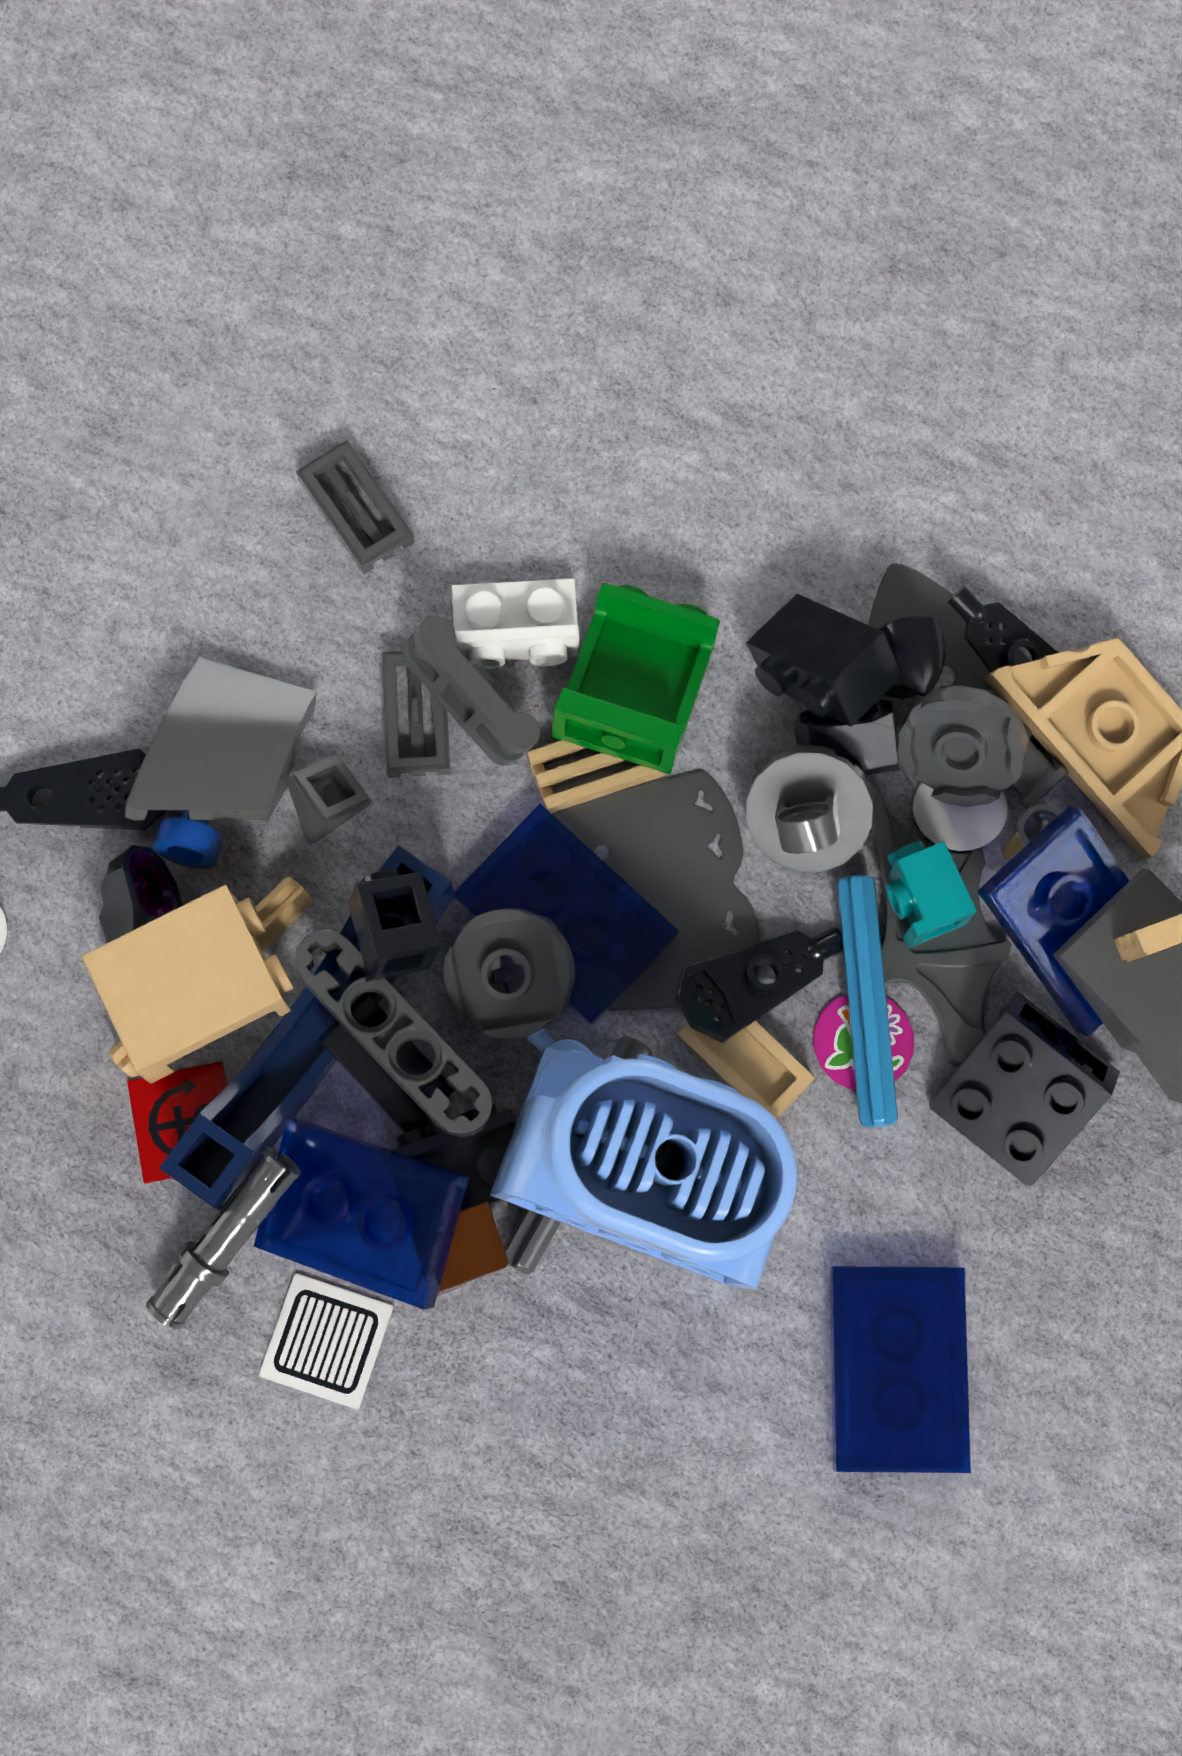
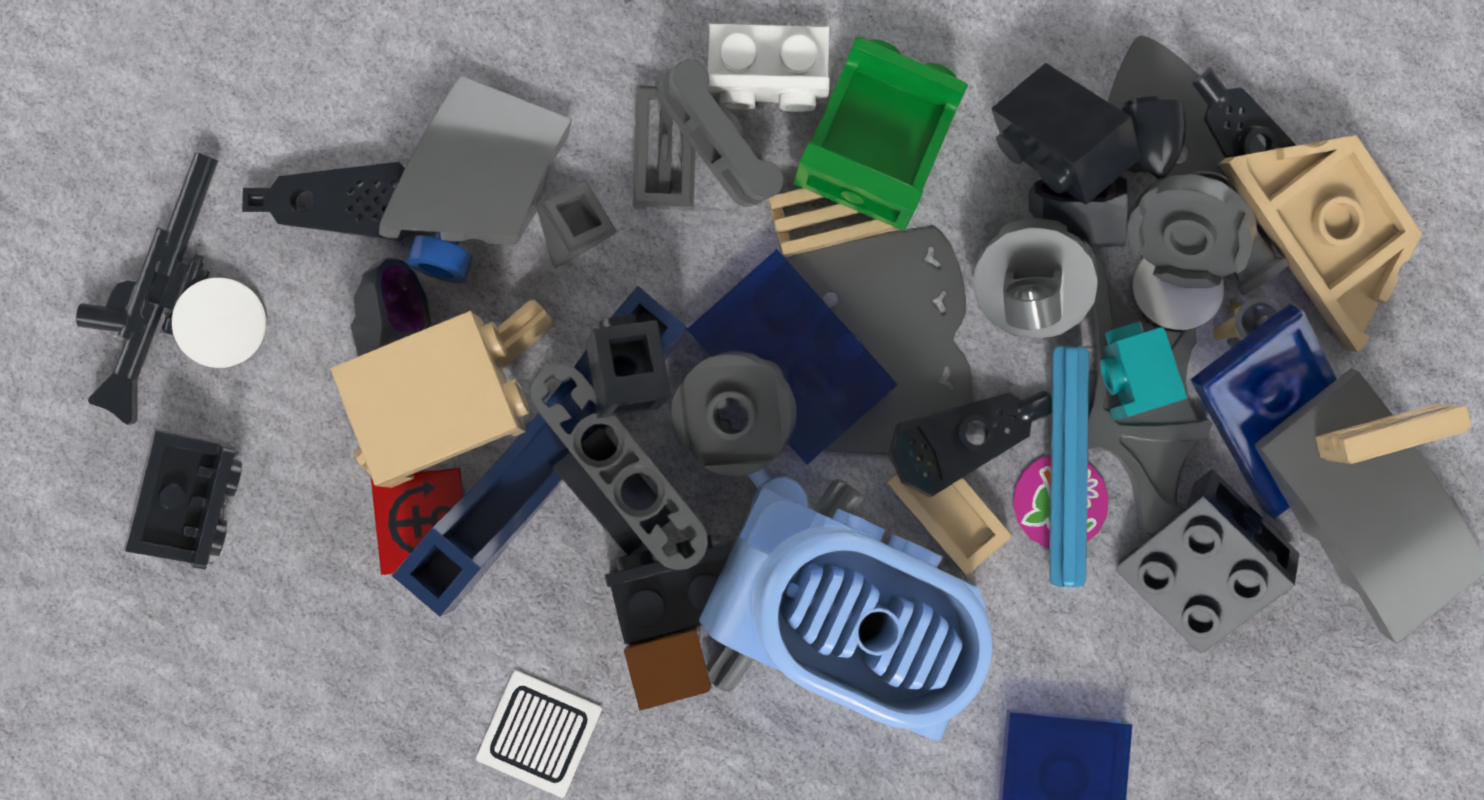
camera: 10 degrees right, 10 degrees up
(206, 1259) = (432, 655): dark grey pin -> none
(364, 1214) = (578, 628): clear blue tile -> none

